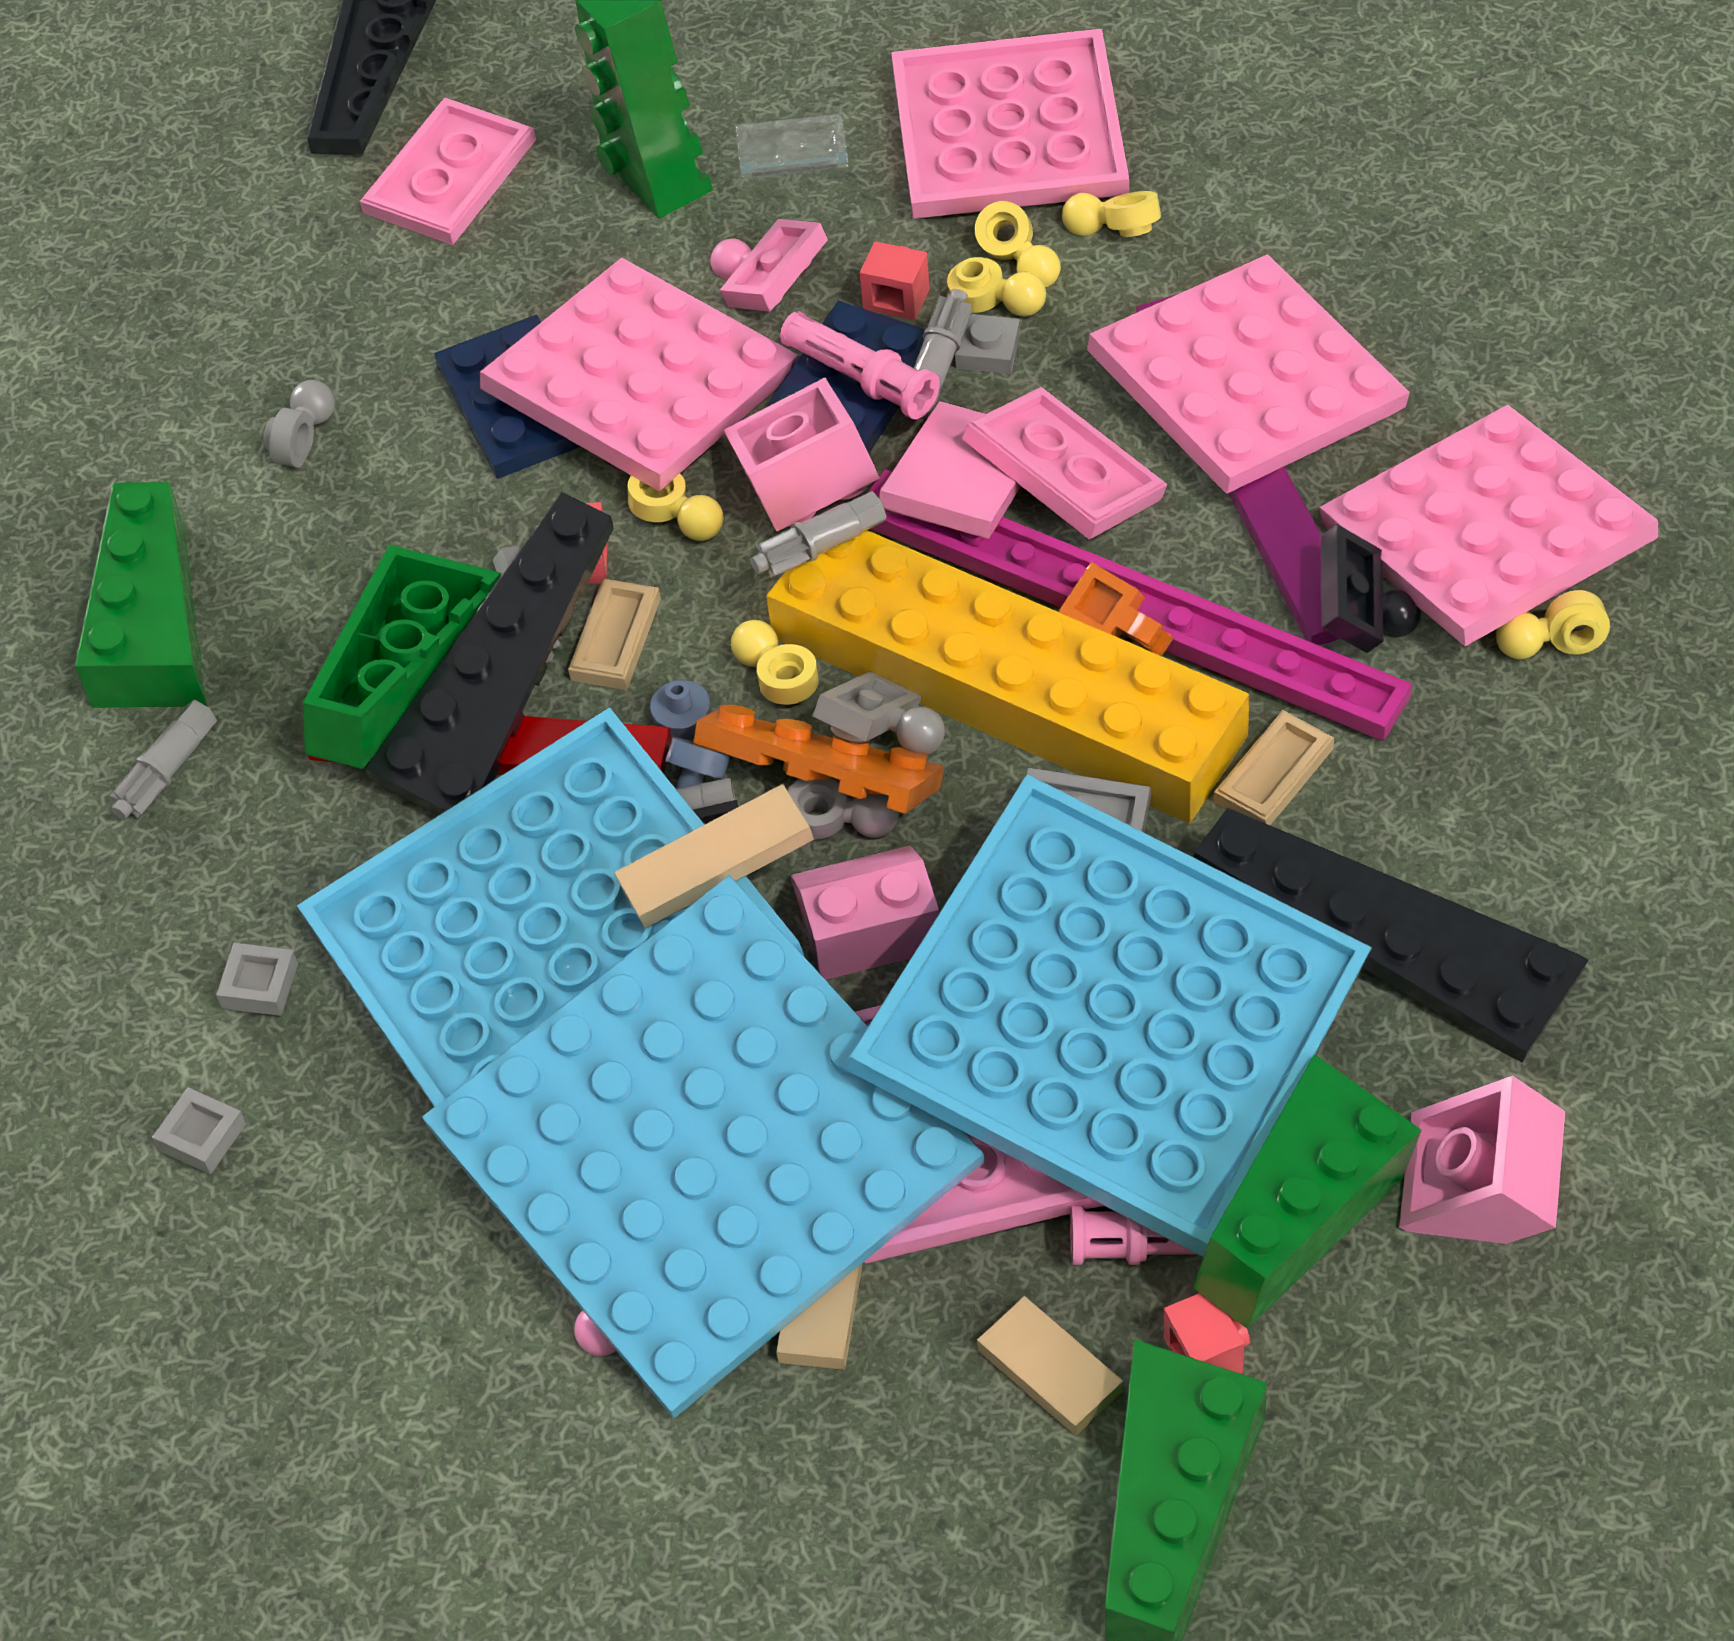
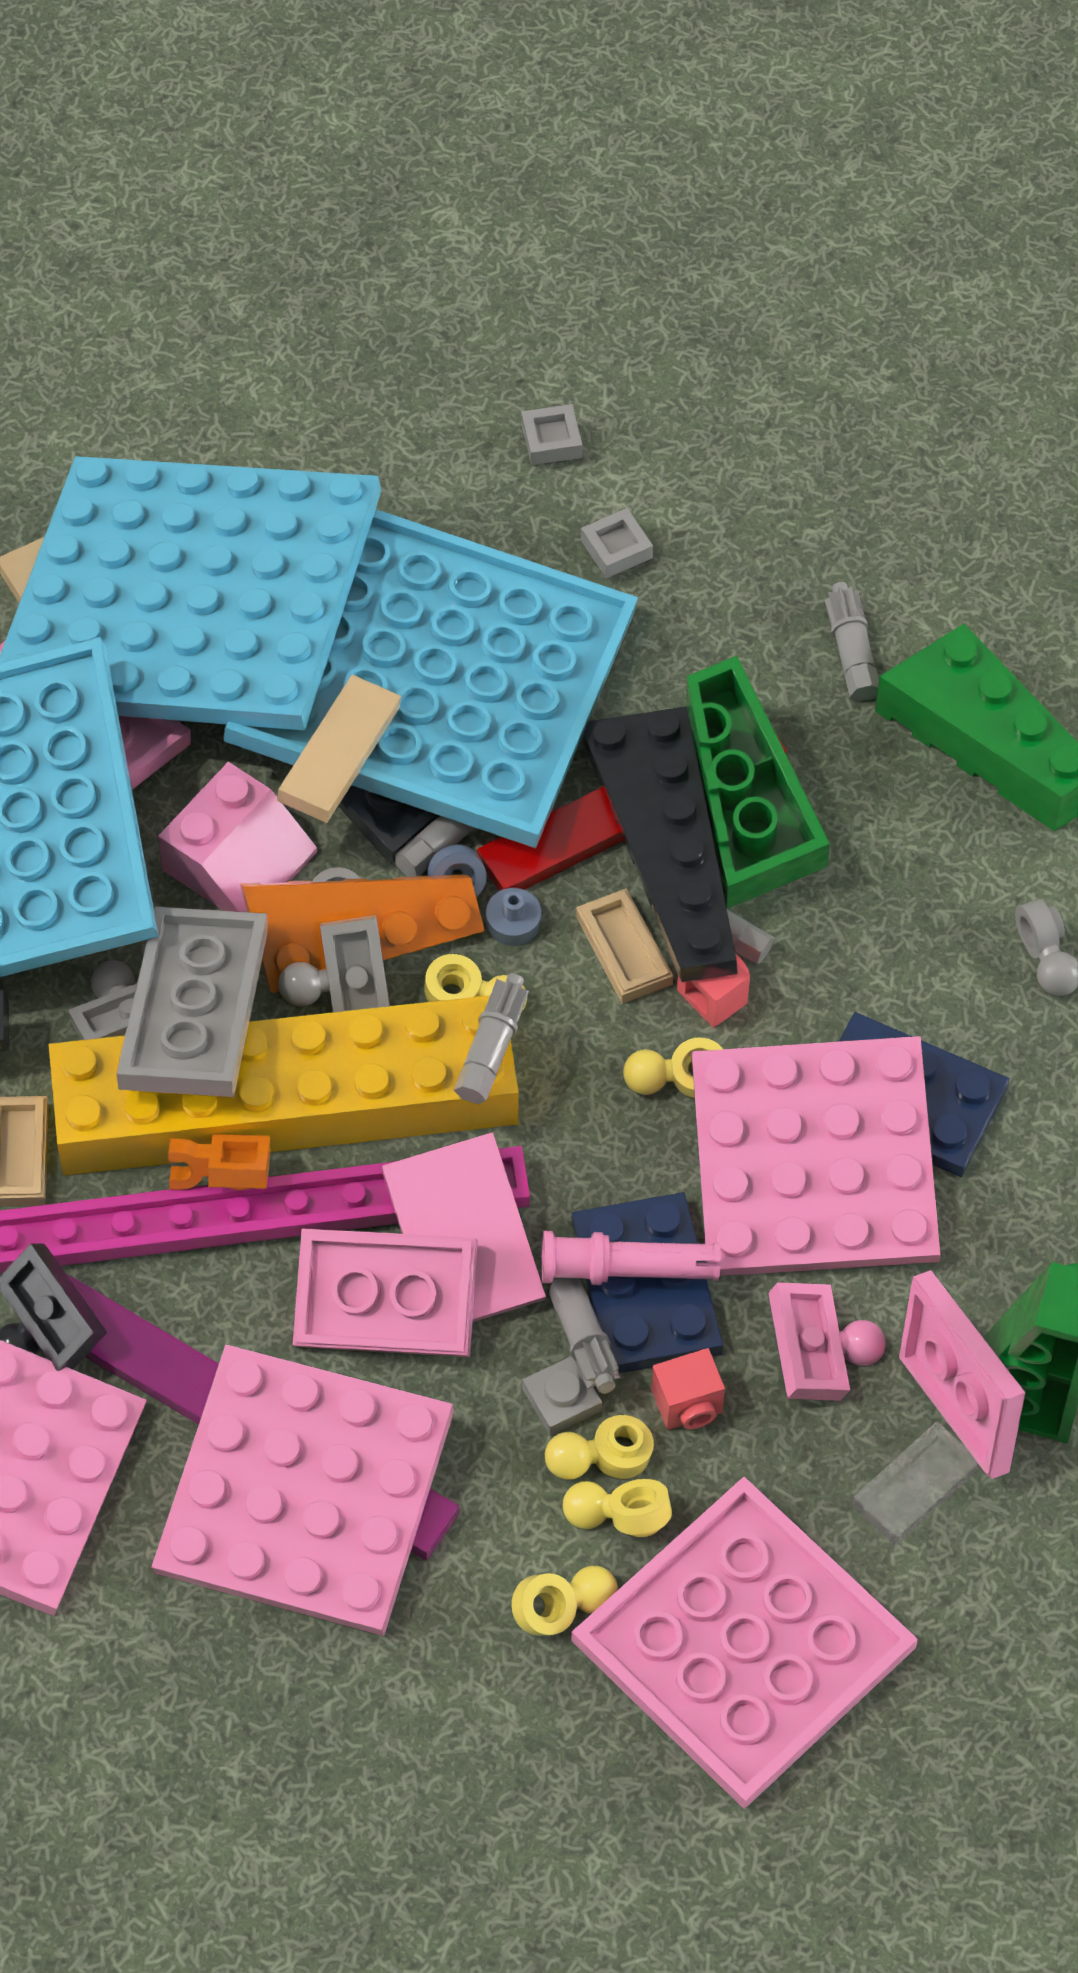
camera: 135 degrees right, 5 degrees up
(702, 142) = (961, 1375): none -> bright pink tile
(802, 454) = (606, 1154): bright pink slope -> none
(1040, 707) = (193, 1002): none -> light grey plate

